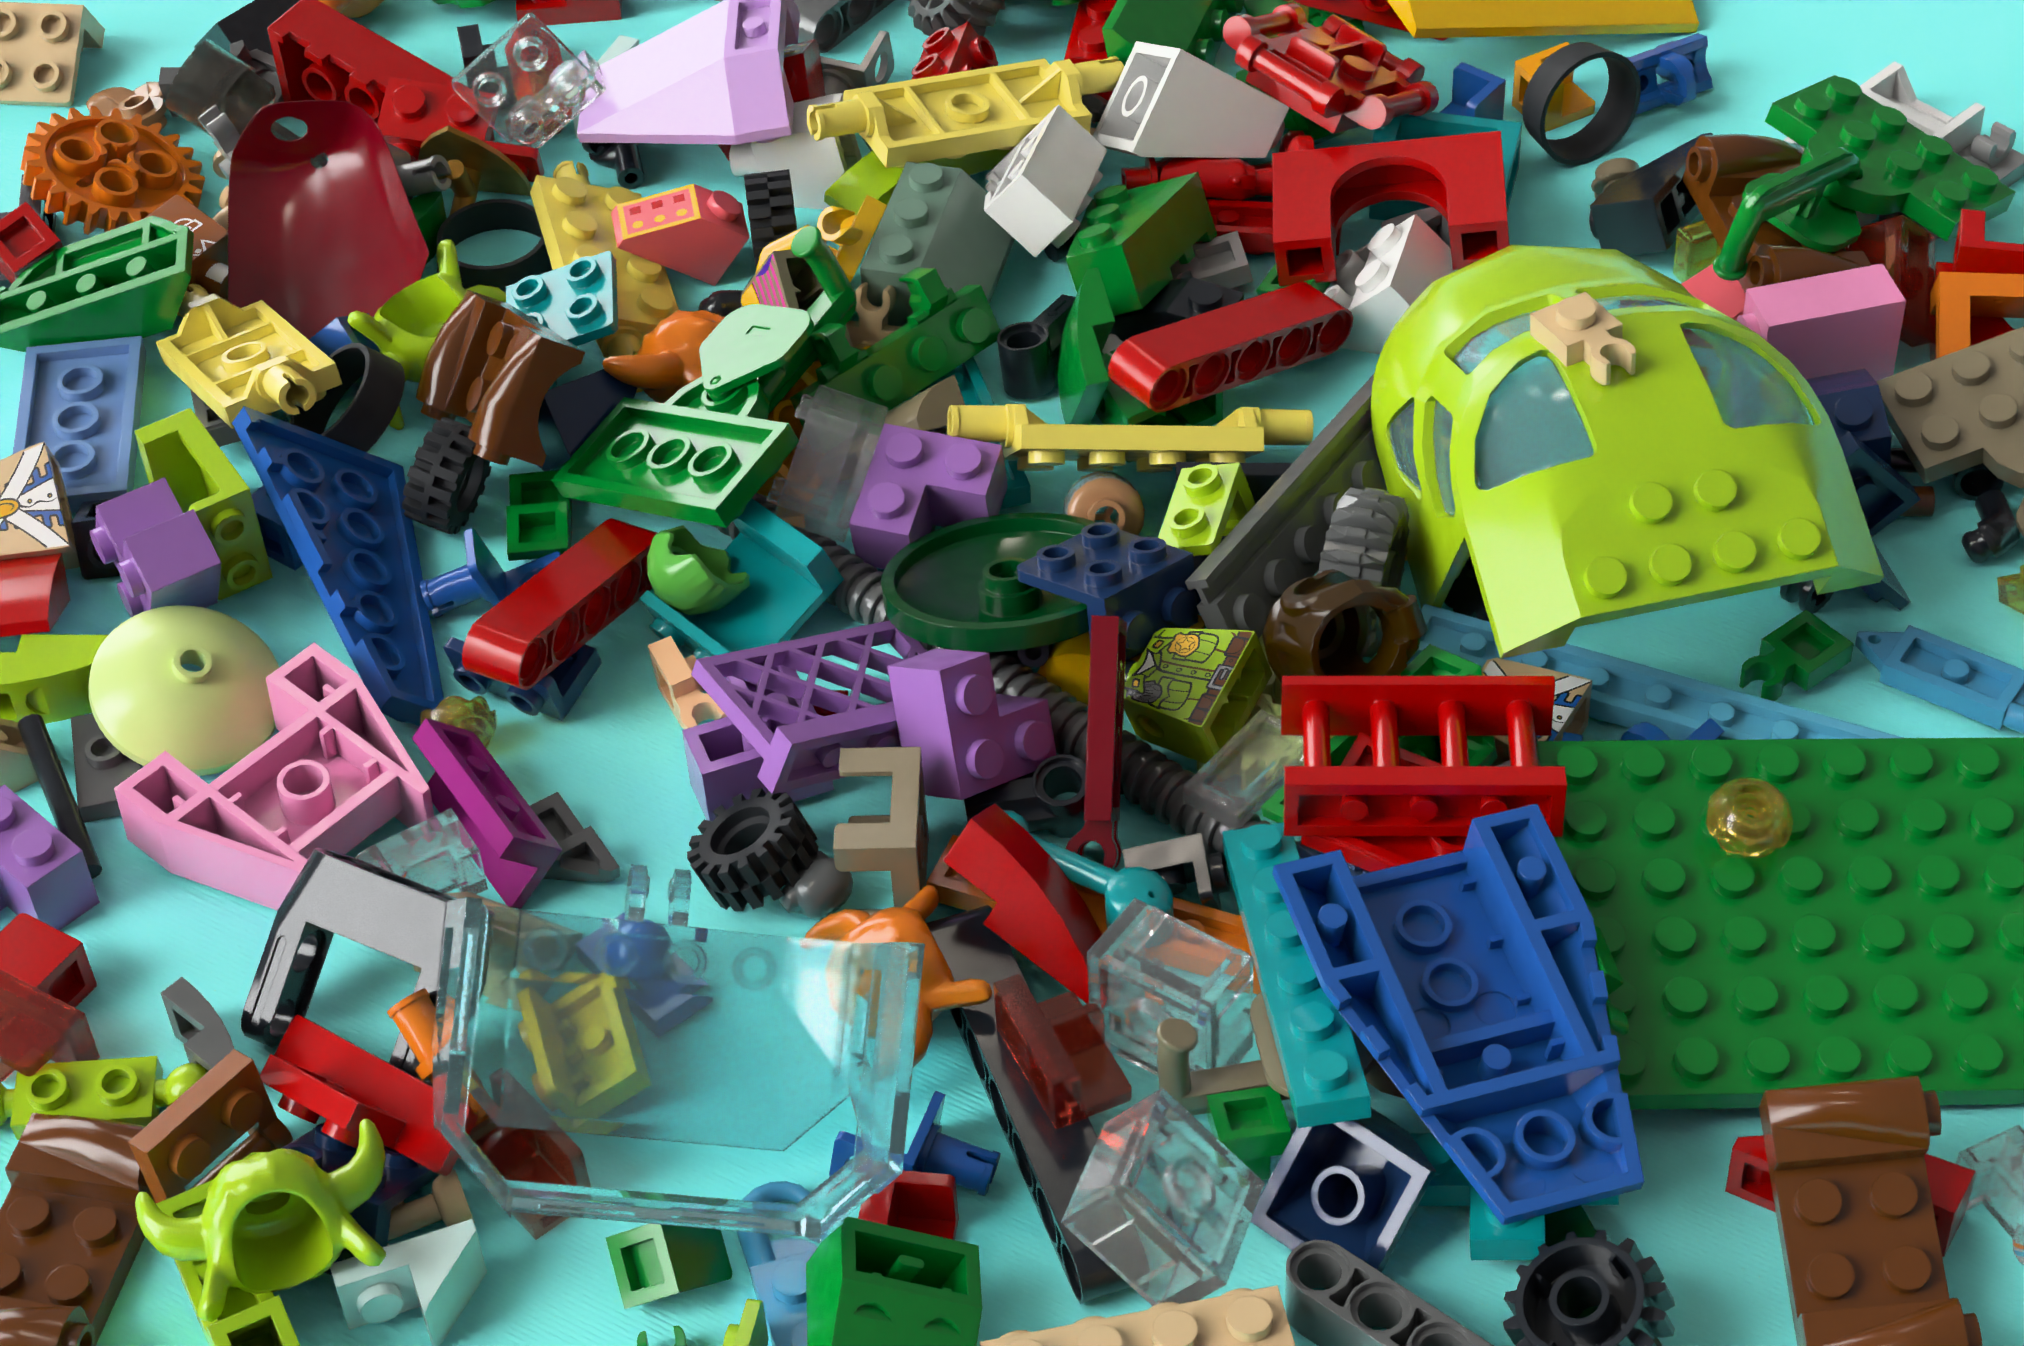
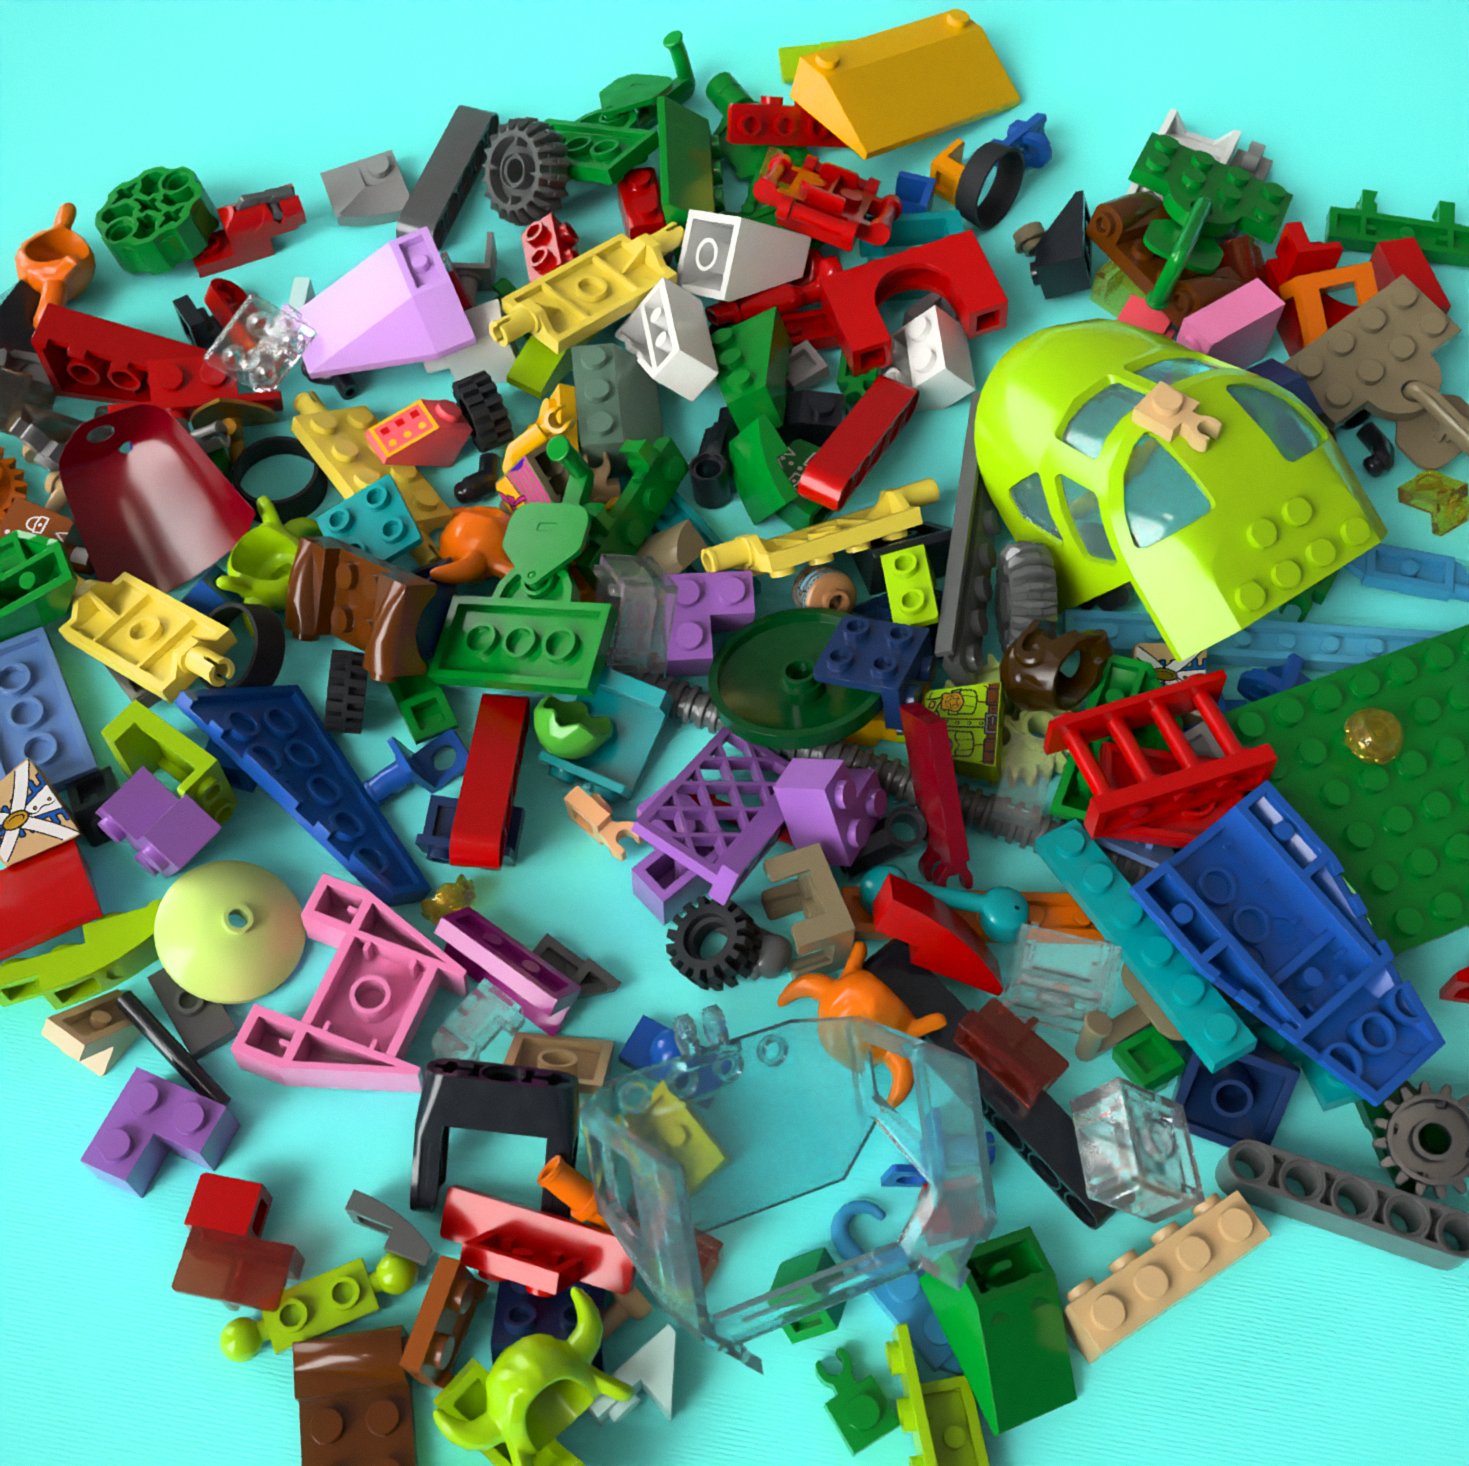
camera: 25 degrees left, 15 degrees up
(1183, 862) = (999, 868): bracket -> none

